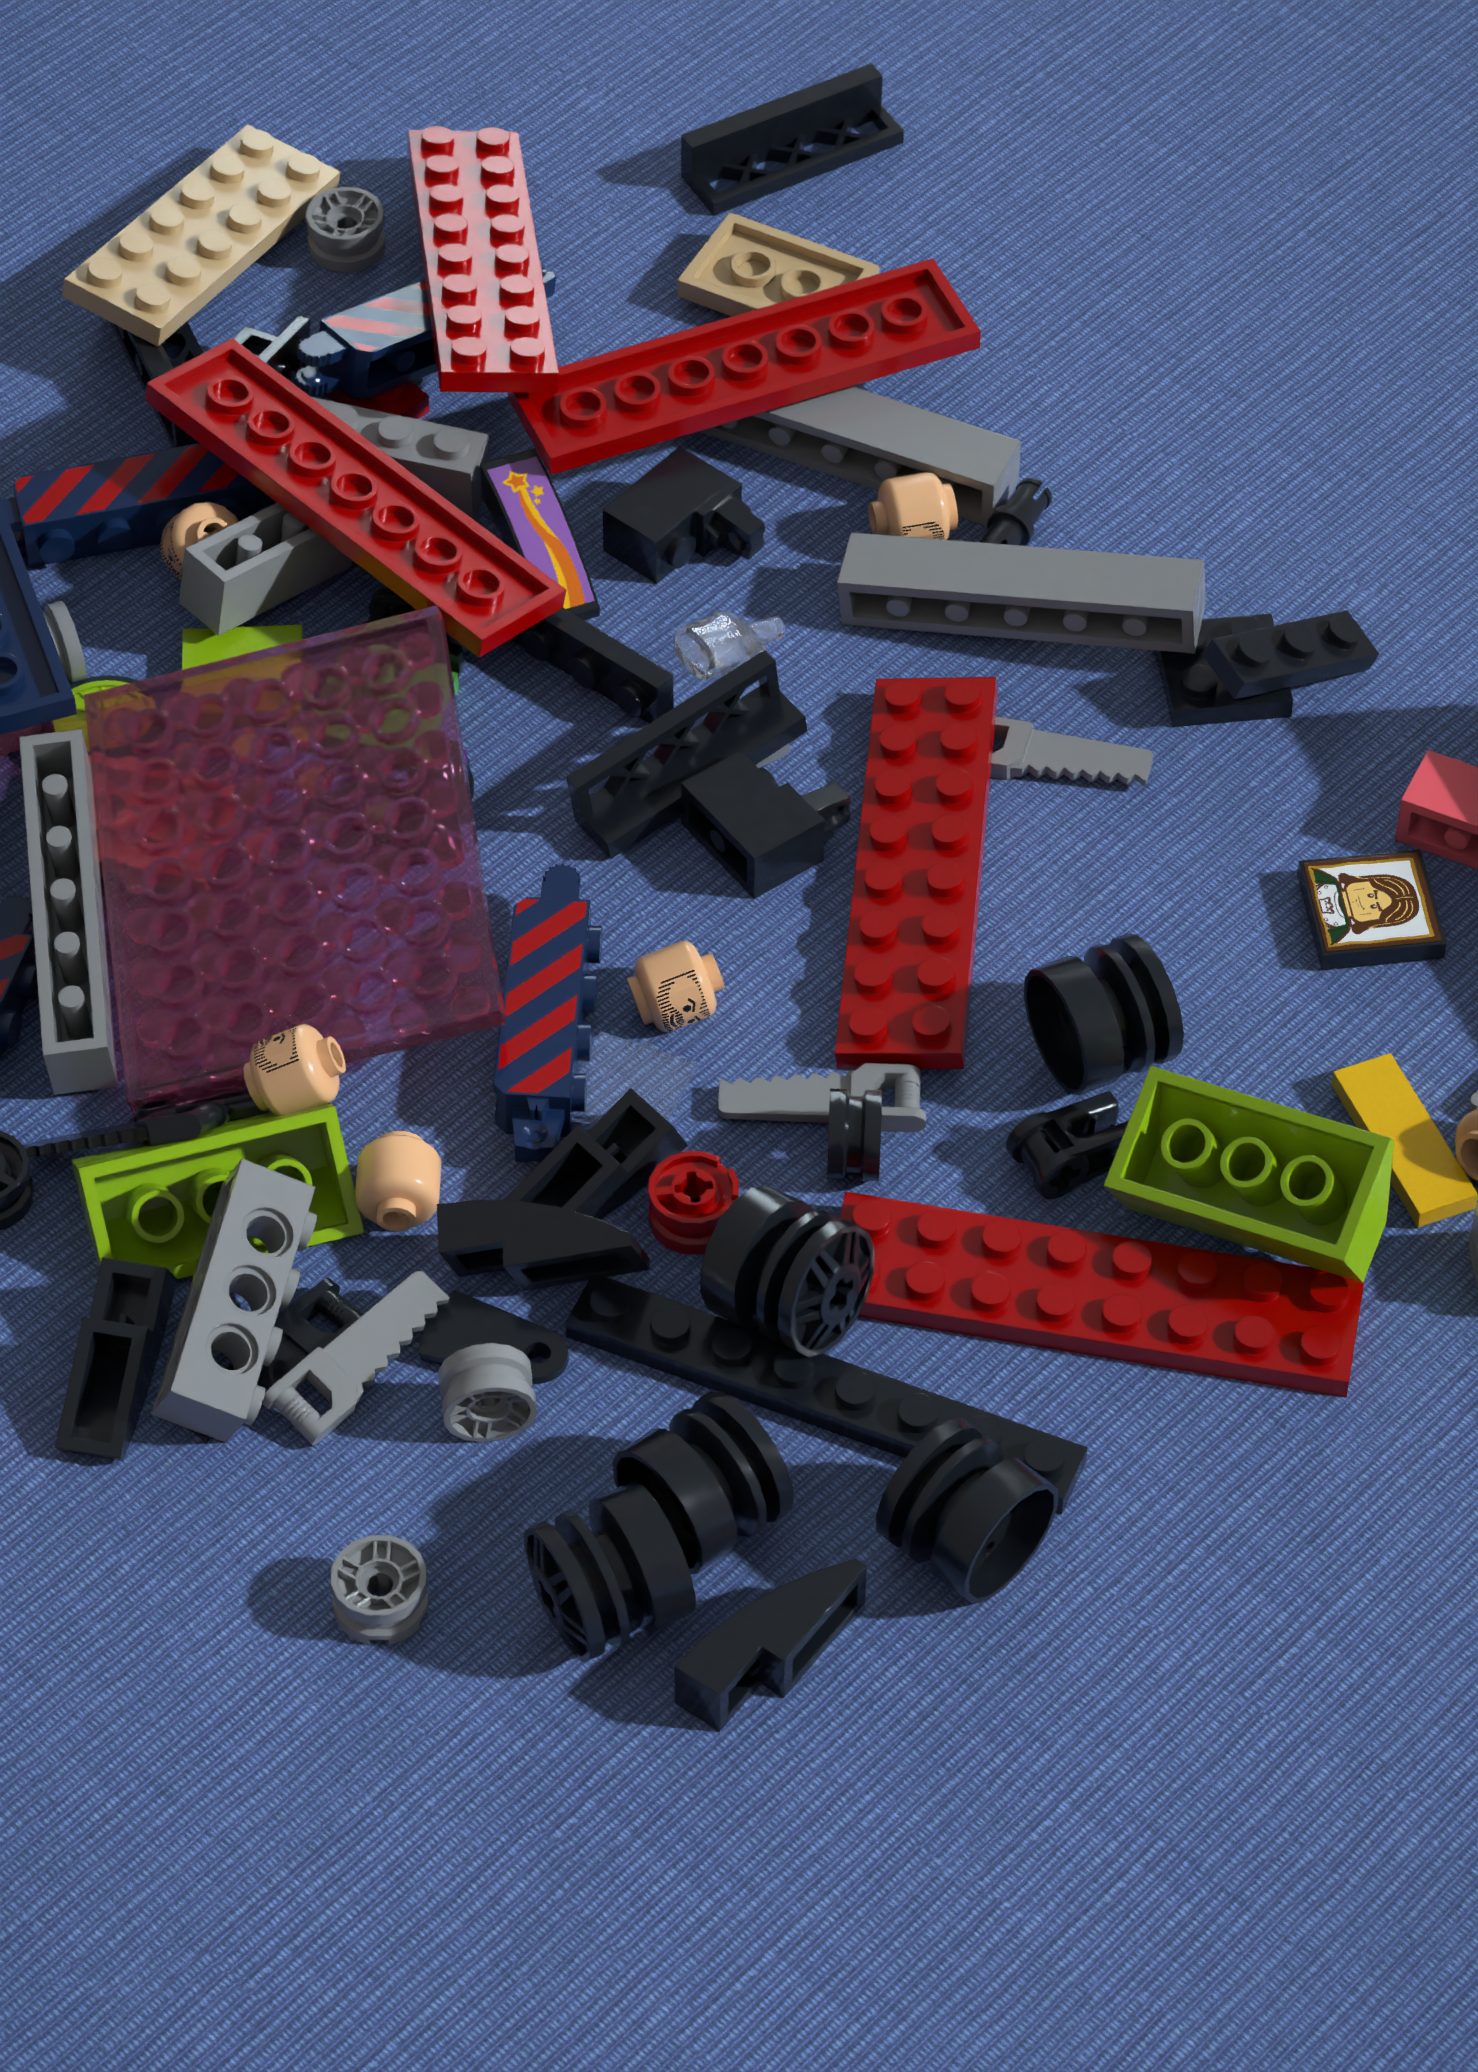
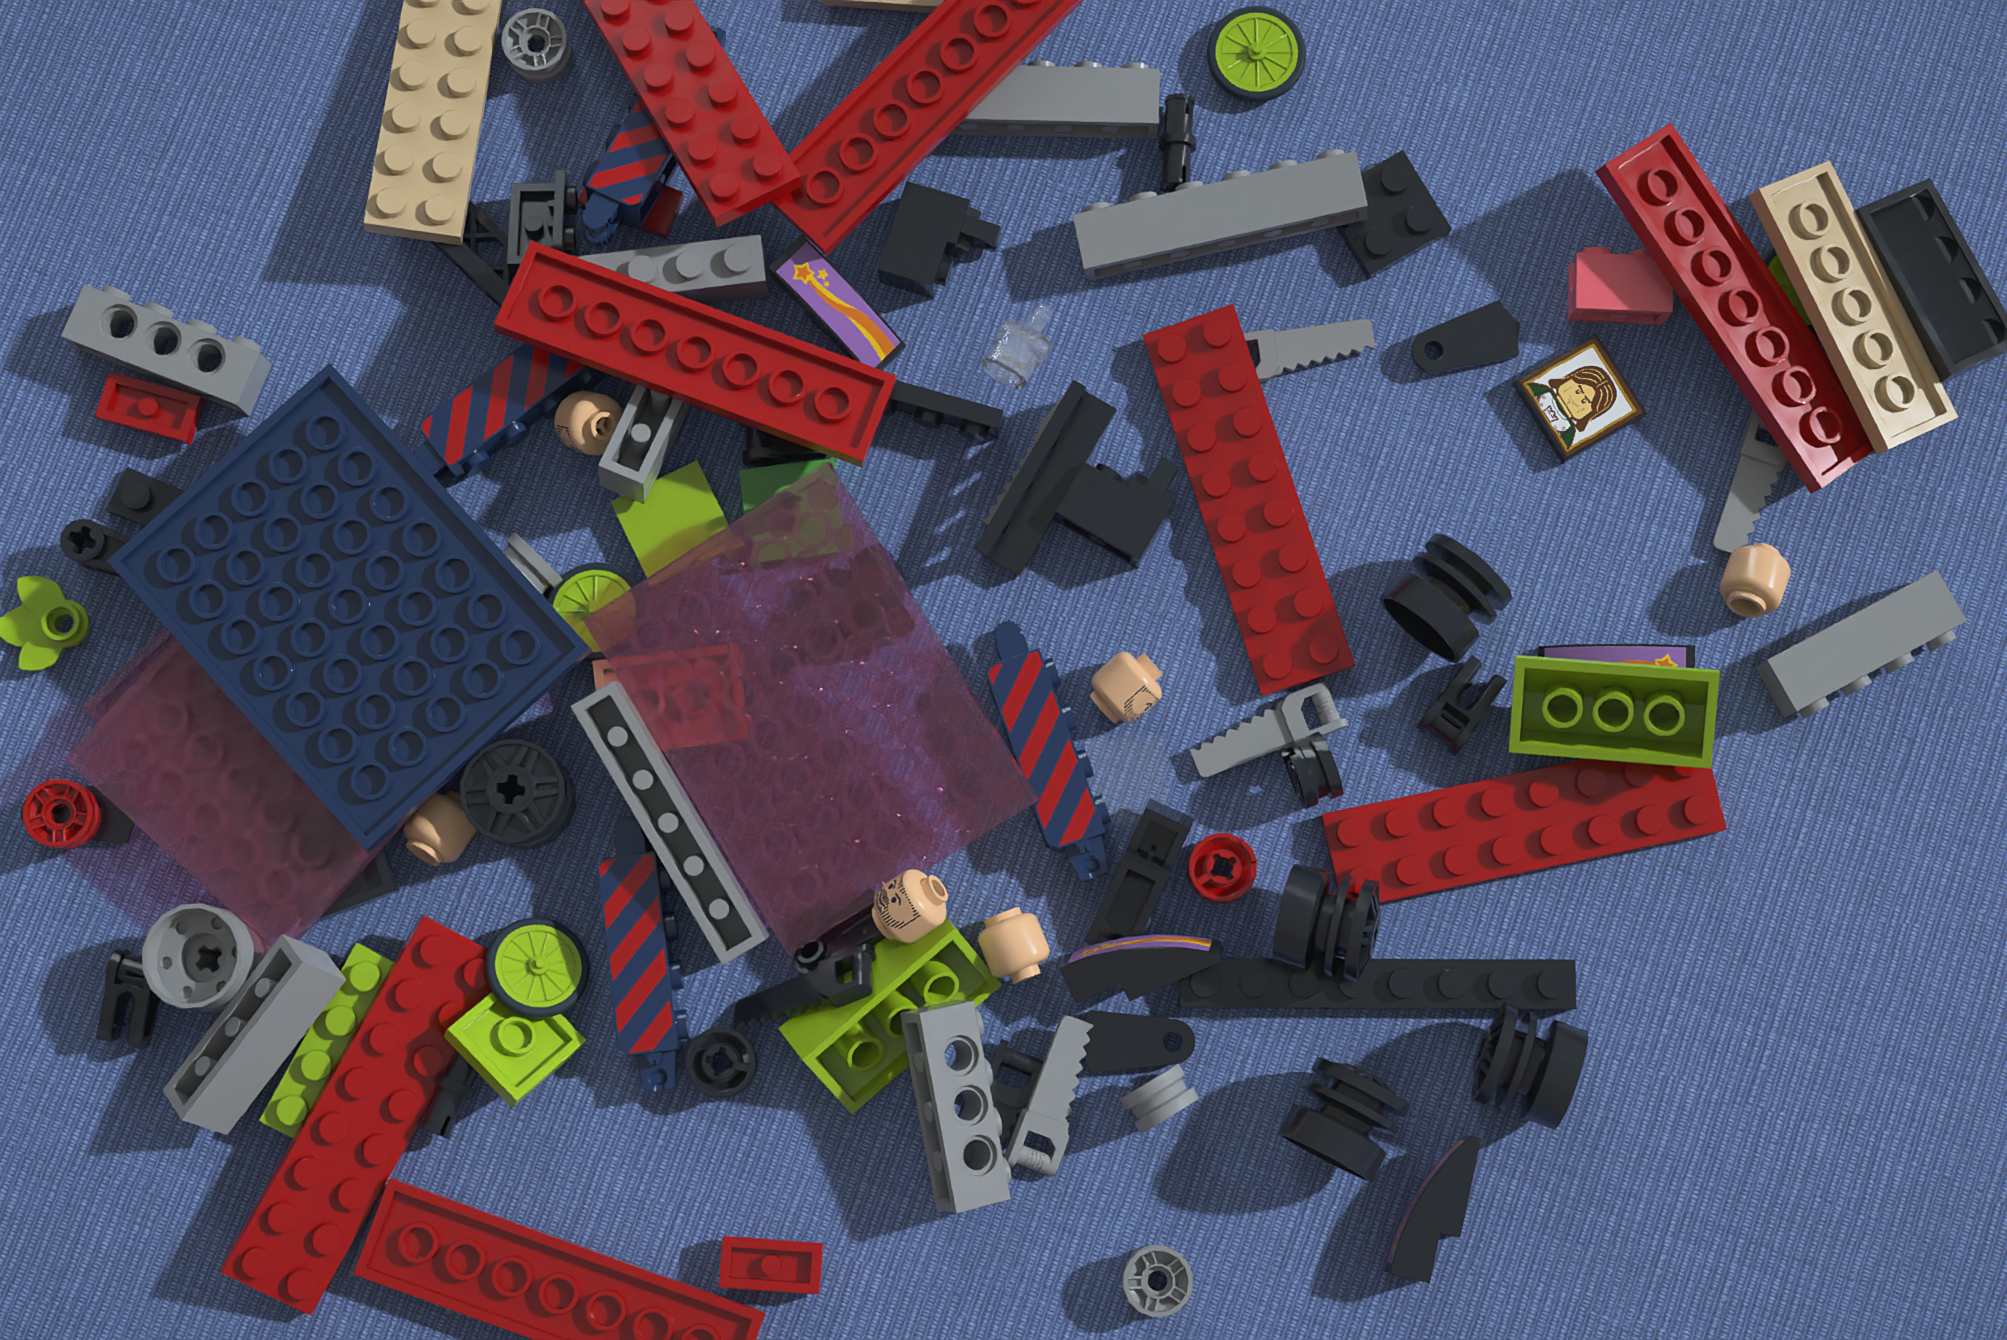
camera: 20 degrees left, 30 degrees up
(115, 1358) = (888, 1173): black slope -> none
(618, 1567) = (1313, 1218): black wheel -> none
(914, 507) = (1104, 164): light nougat head -> none
(1144, 481) = (1256, 53): none -> lime wheel
(1262, 812) = (1469, 340): none -> black piece
(1290, 654) = (1438, 193): black plate -> none
(1422, 1163) = (1681, 598): yellow tile -> none

